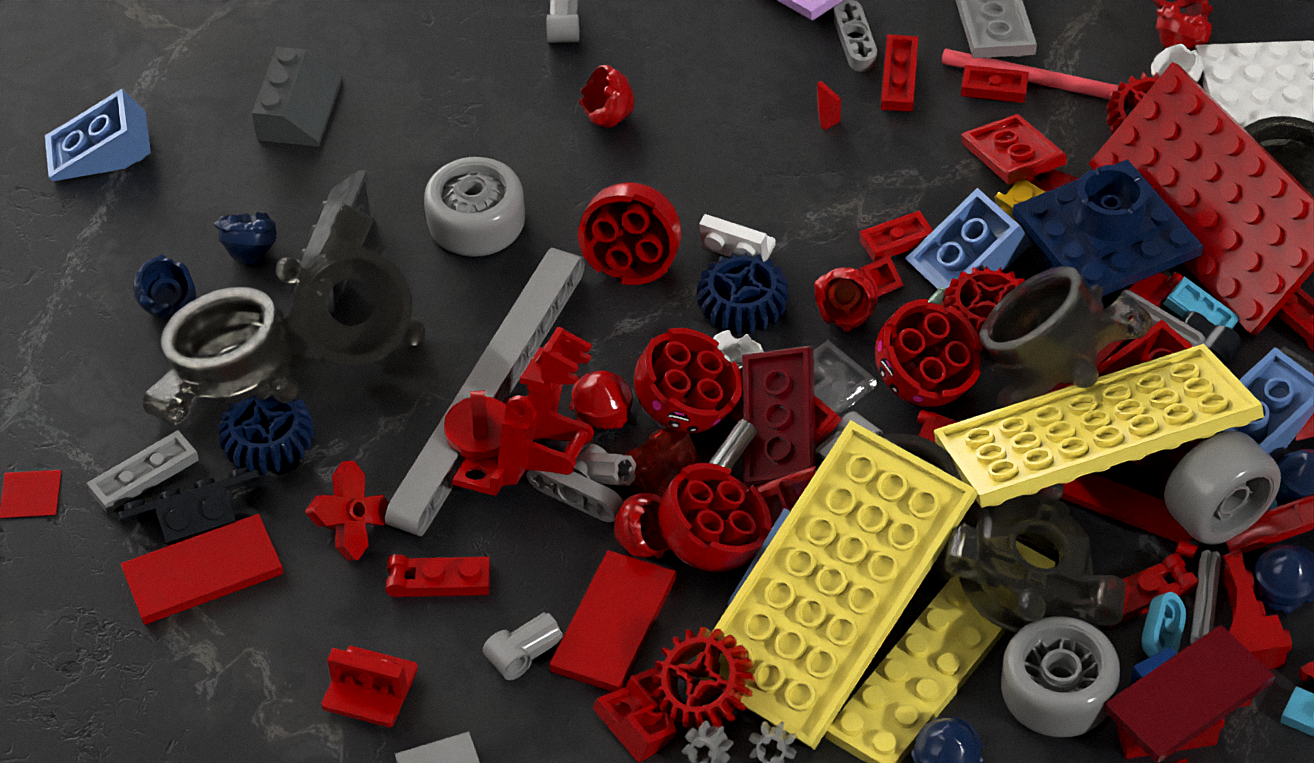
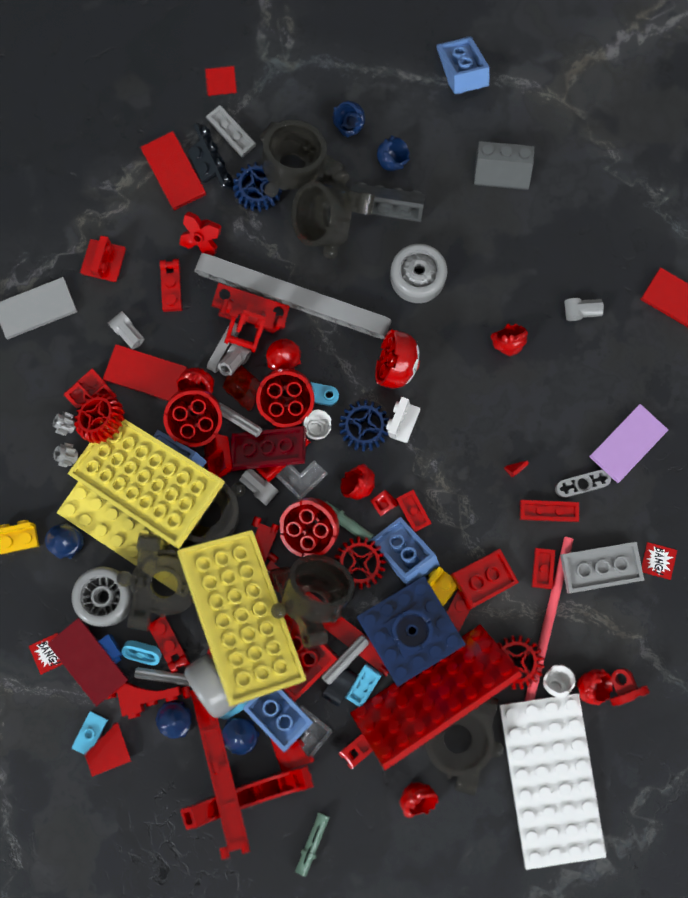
camera: 85 degrees right, 30 degrees up
(475, 426) = (253, 290): red tile -> none

